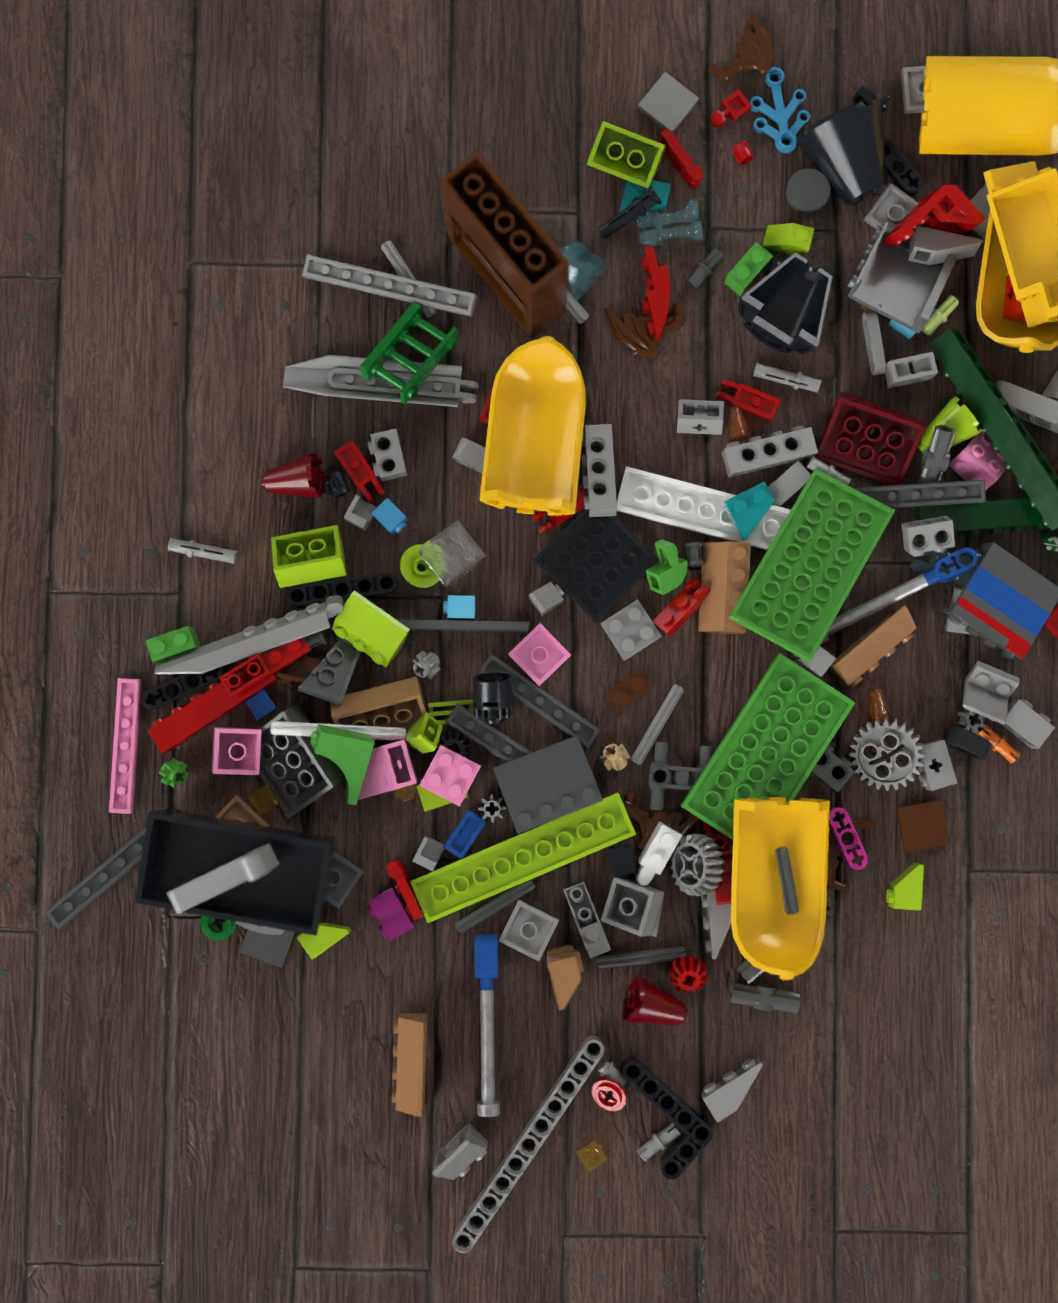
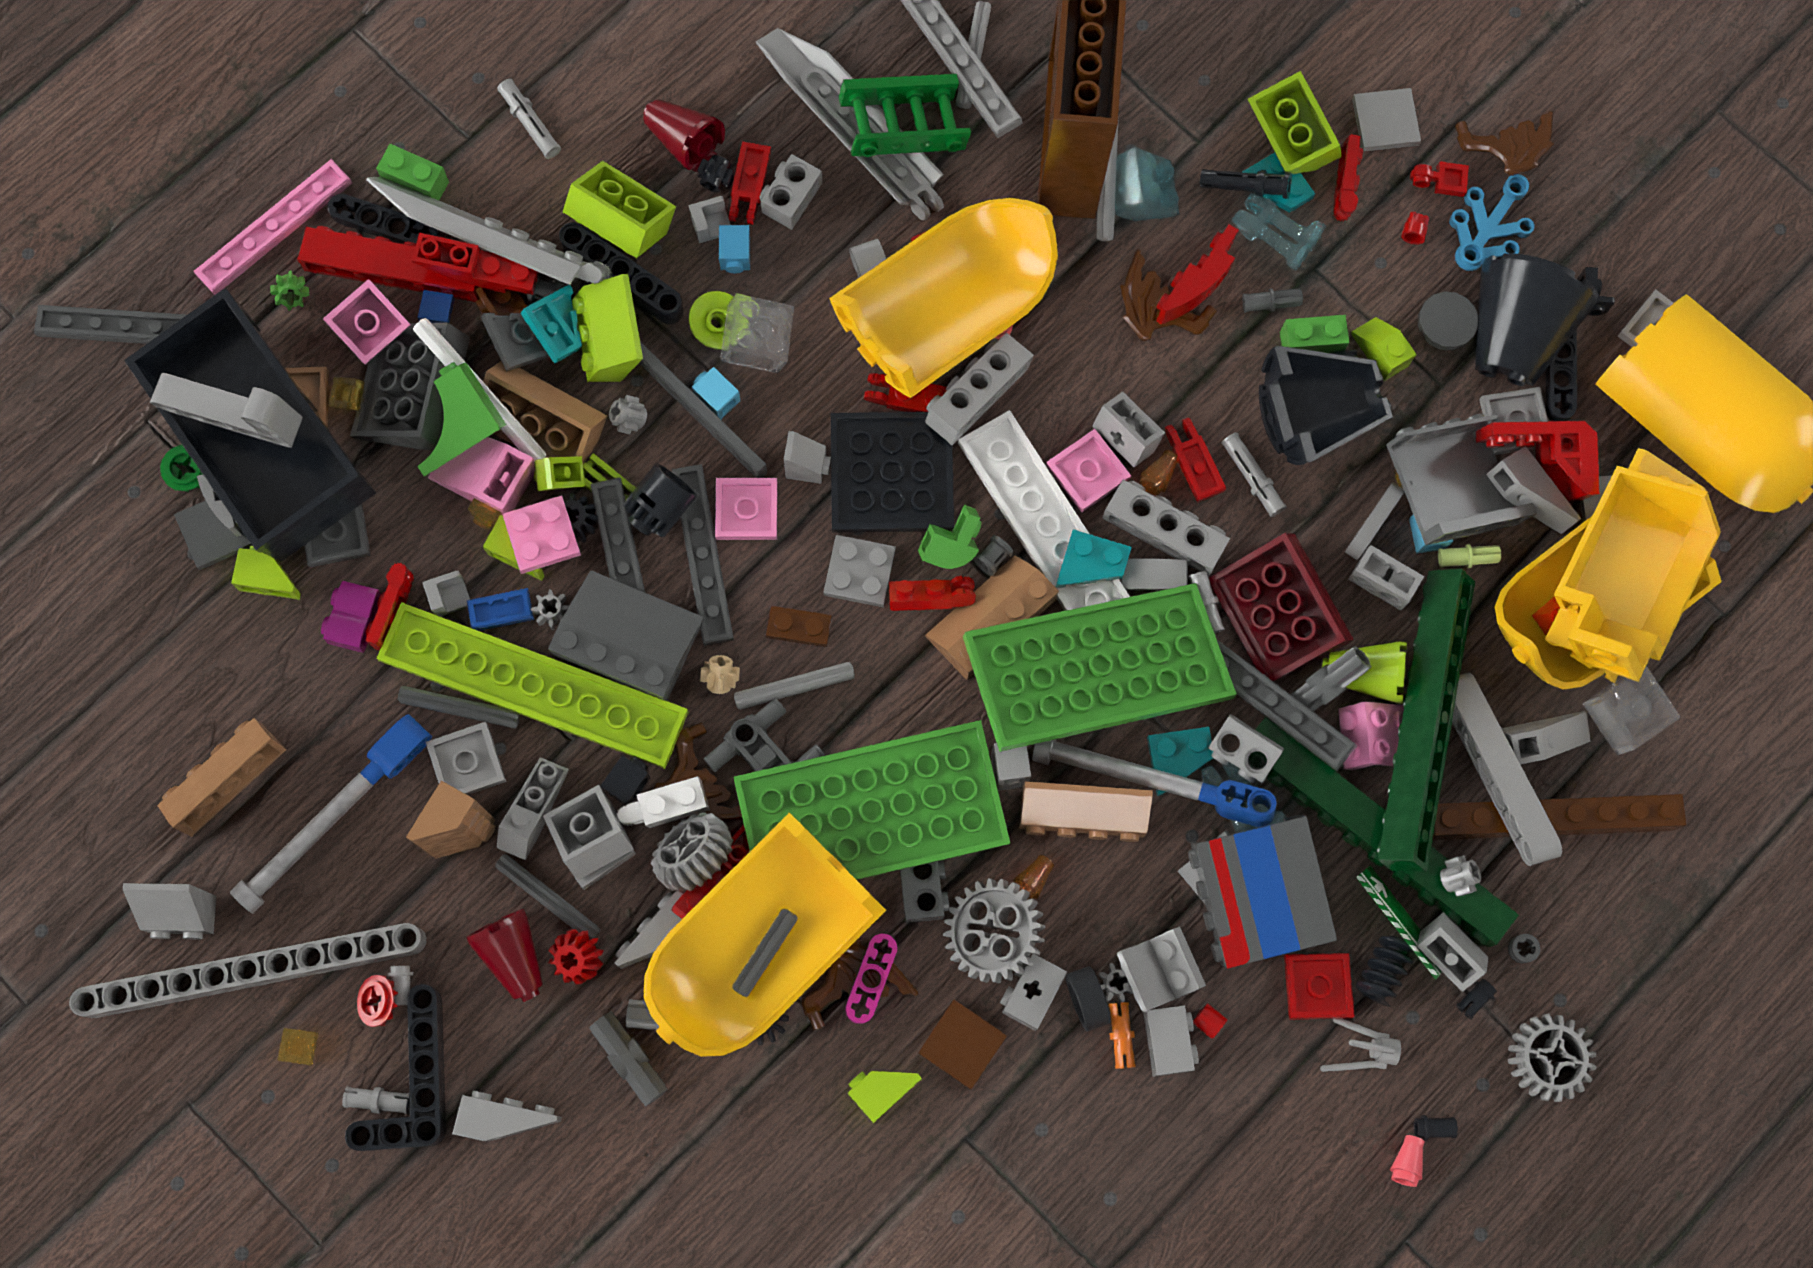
camera: 40 degrees right, 10 degrees down
(340, 654) = (555, 323): none -> teal wing
(698, 459) = (1088, 470): none -> bright pink plate
(889, 567) = (1180, 751): none -> teal wing
(1035, 693) = (1209, 1021): none -> red hose

